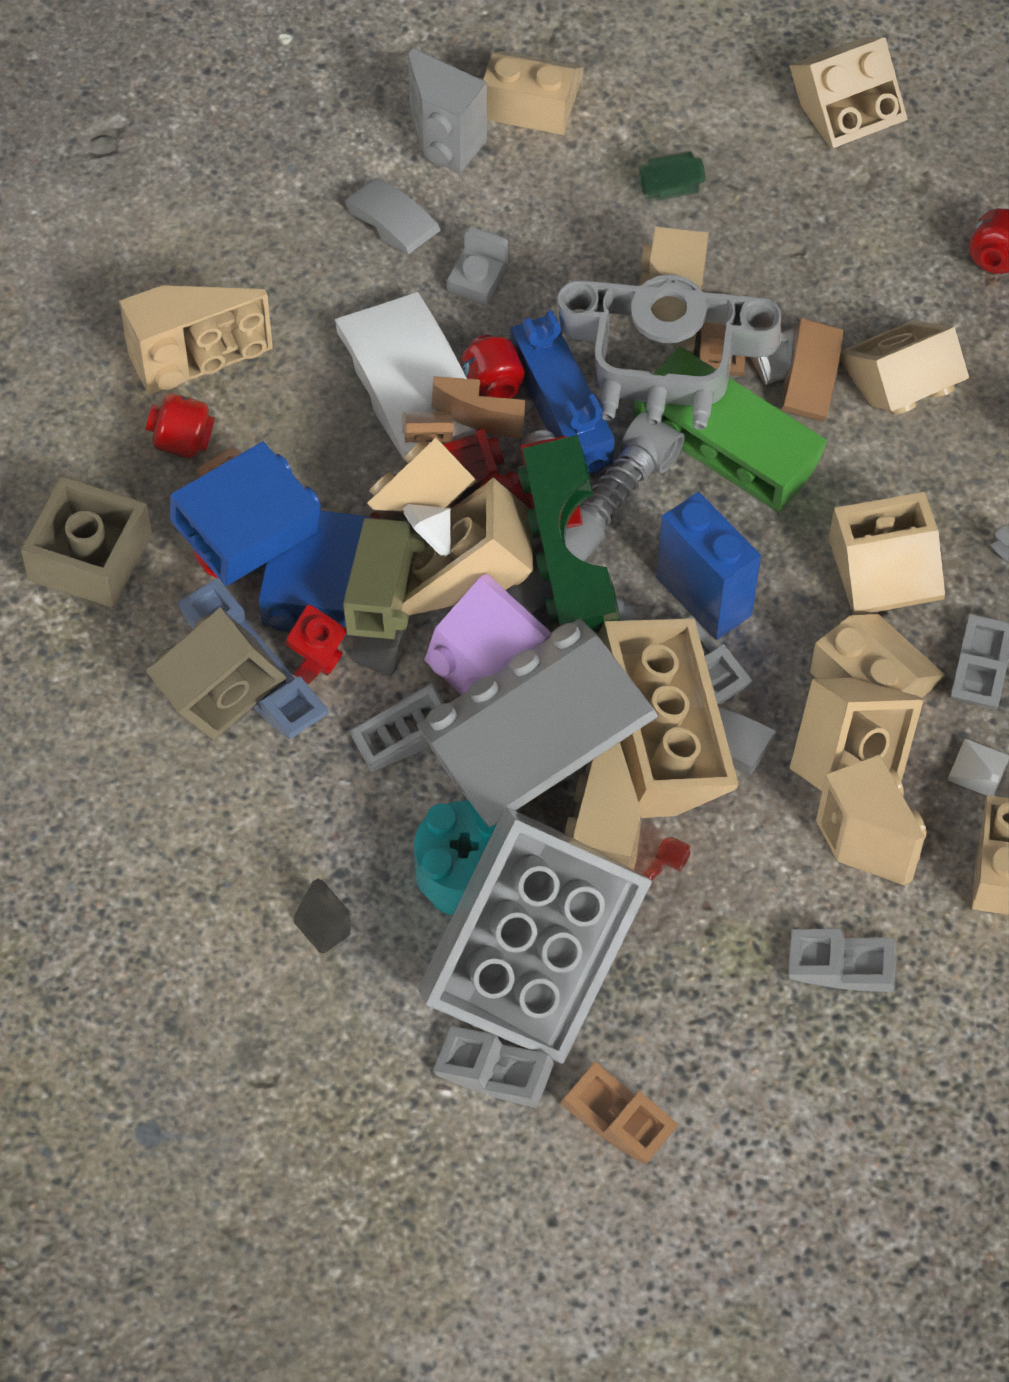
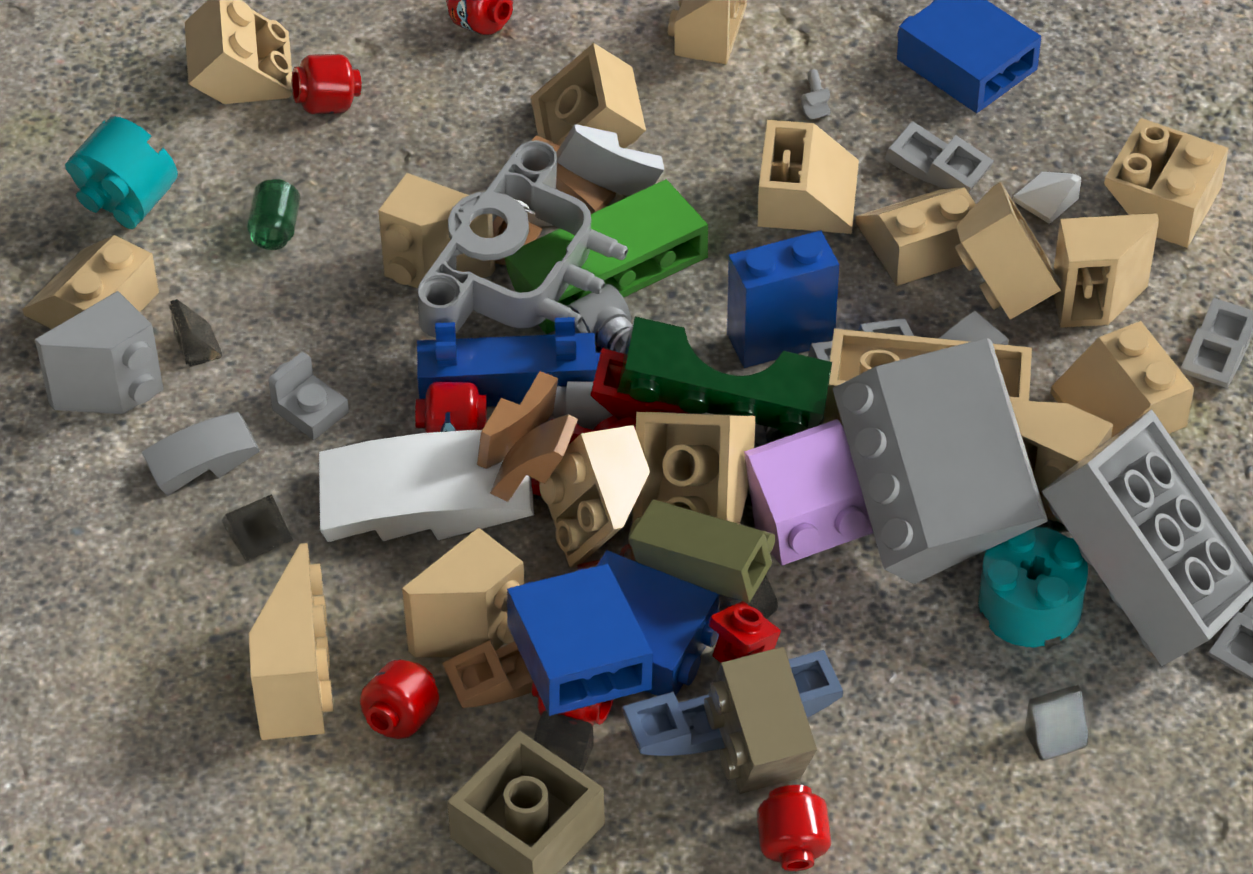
camera: 70 degrees left, 10 degrees down
(141, 739) = (793, 827): none -> red head
(171, 558) = (566, 738): none -> clear smoke slope
(287, 424) = (462, 598): none -> tan slope
(332, 281) = (257, 528): none -> clear smoke slope
(397, 714) = (854, 567): light grey slope -> none
(432, 525) = (667, 482): white slope -> none
(515, 168) = (193, 335): none -> clear smoke slope
(657, 52) = (121, 171): none -> teal brick
(737, 886) = (1125, 378): none -> tan slope
(828, 377) = (600, 159): none -> light grey slope
(842, 161) = (325, 84): none -> red head

